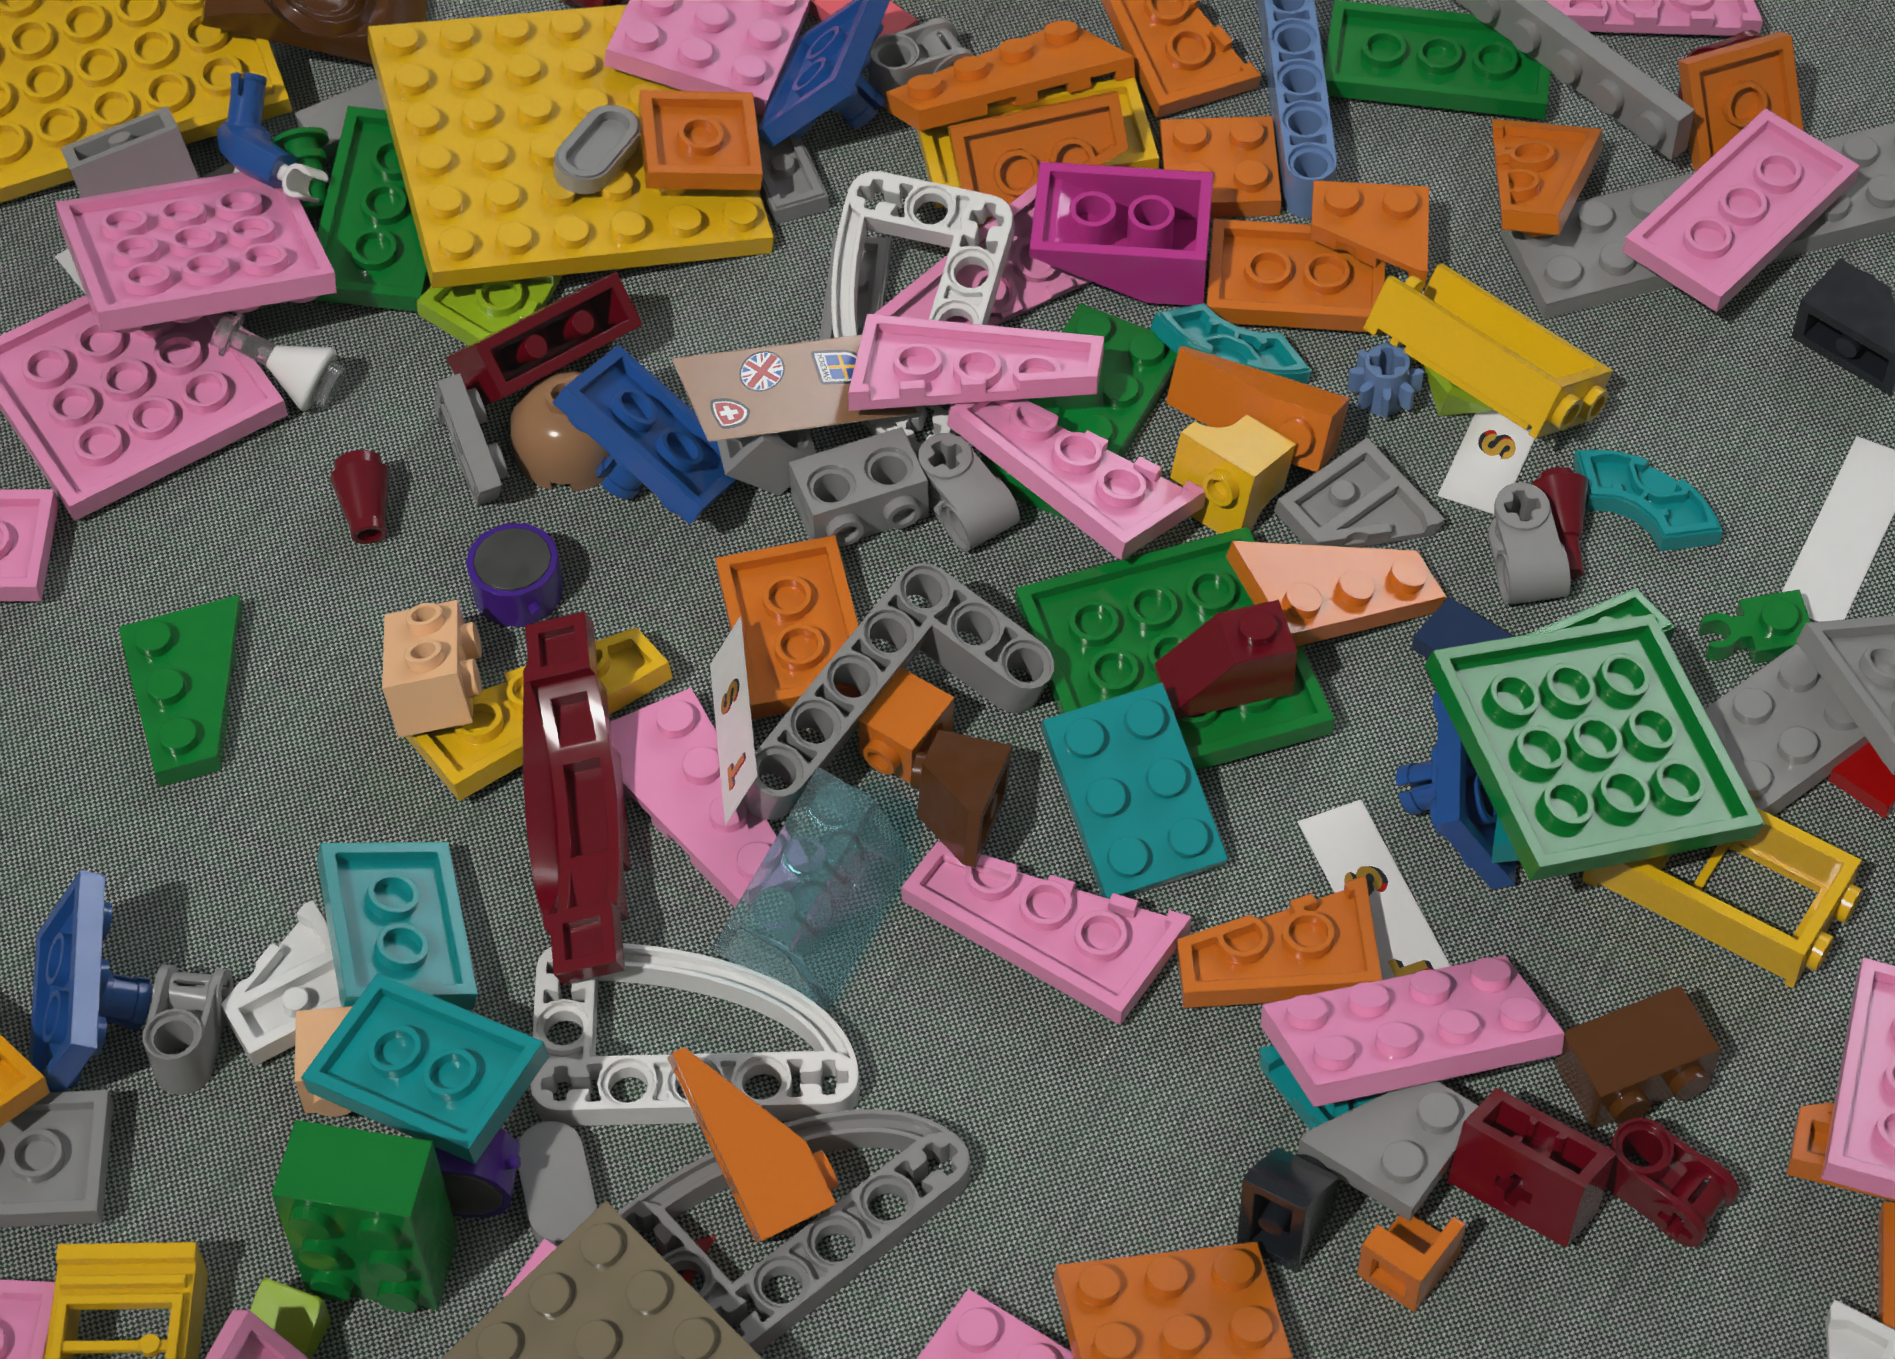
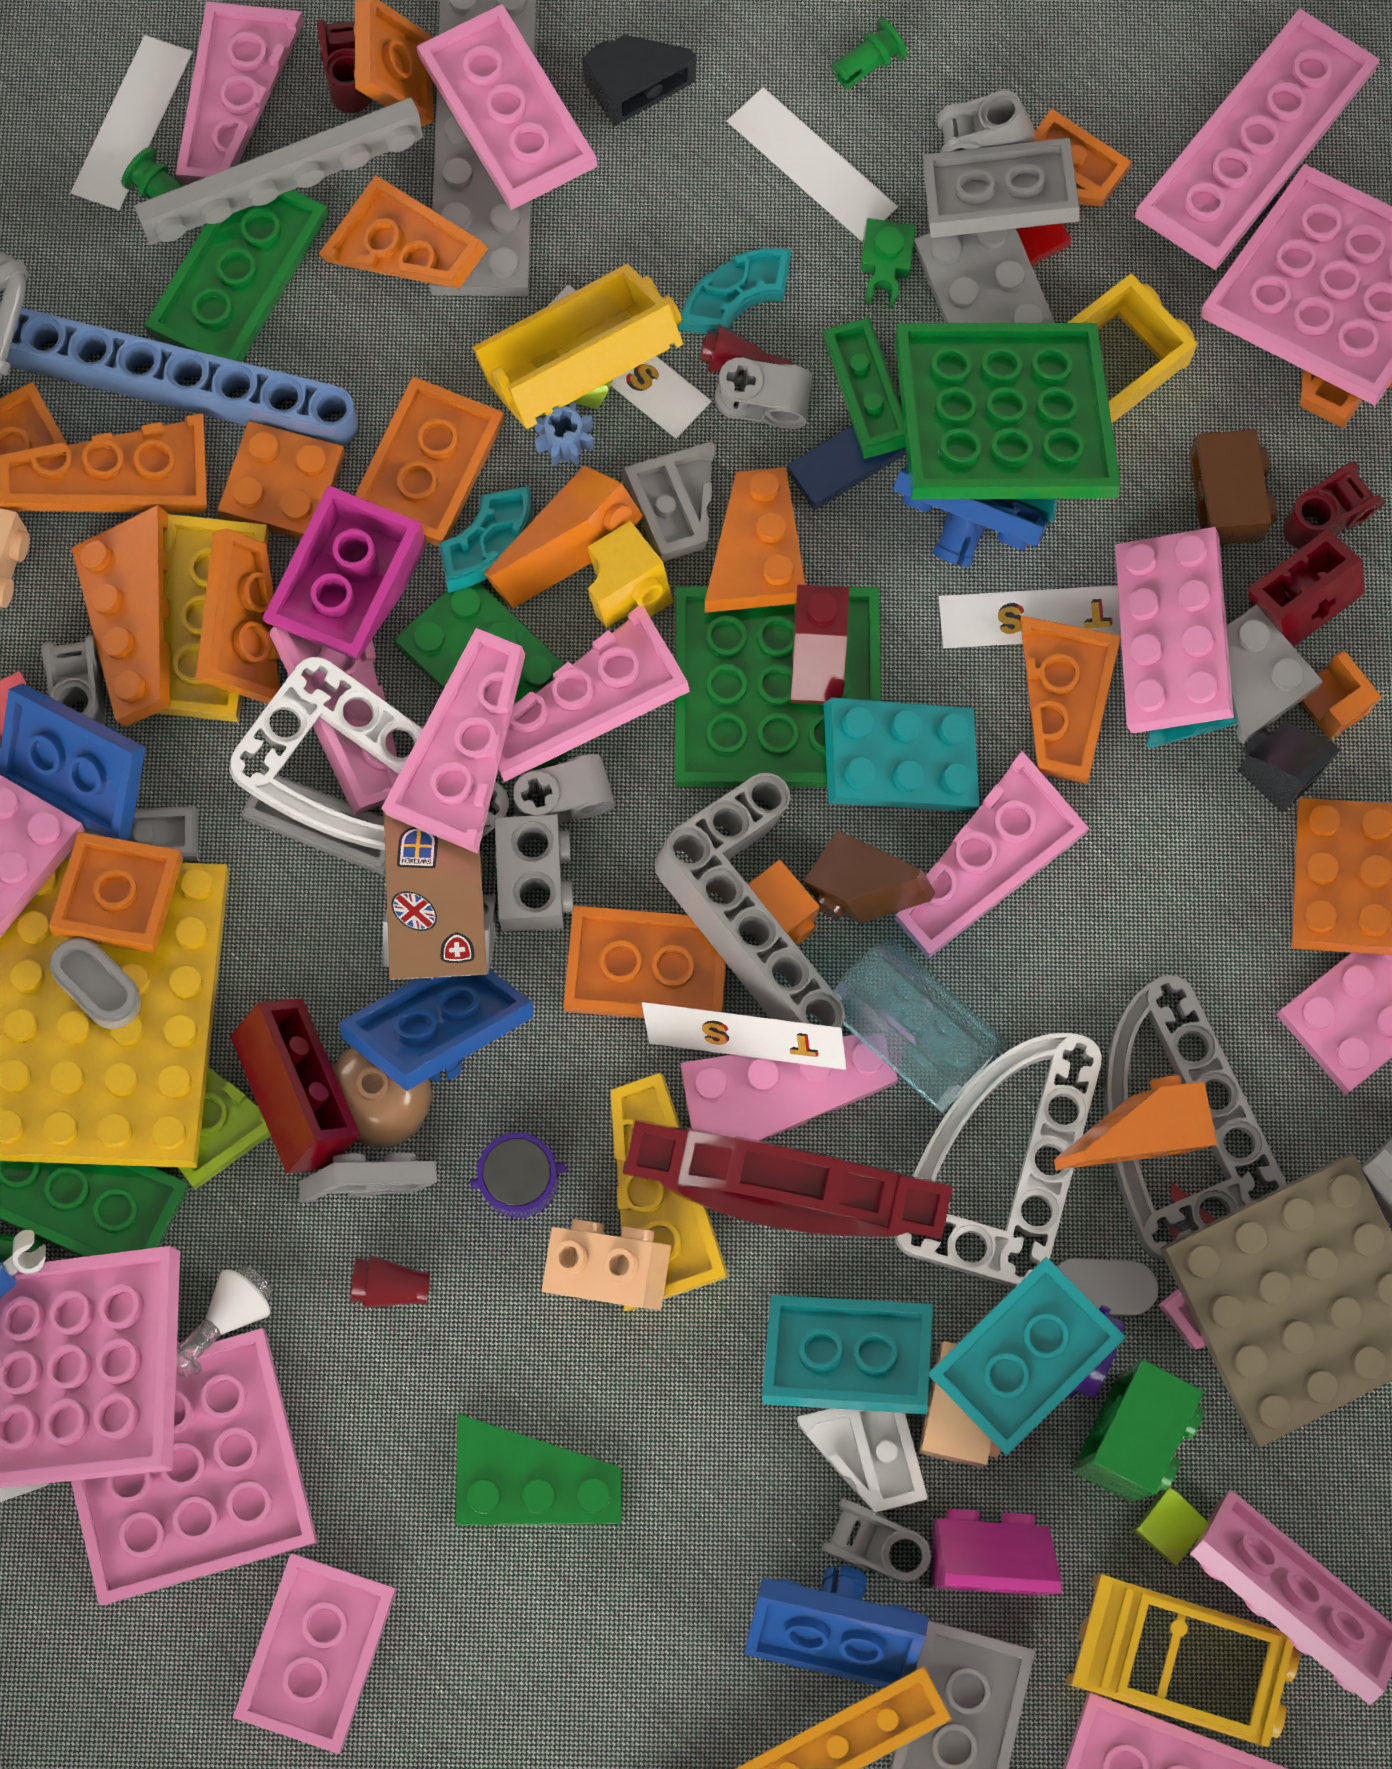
camera: 75 degrees left, 20 degrees up
(186, 1116) = (993, 1555): none -> dark pink slope
(1374, 222) = (410, 381): orange wing -> none

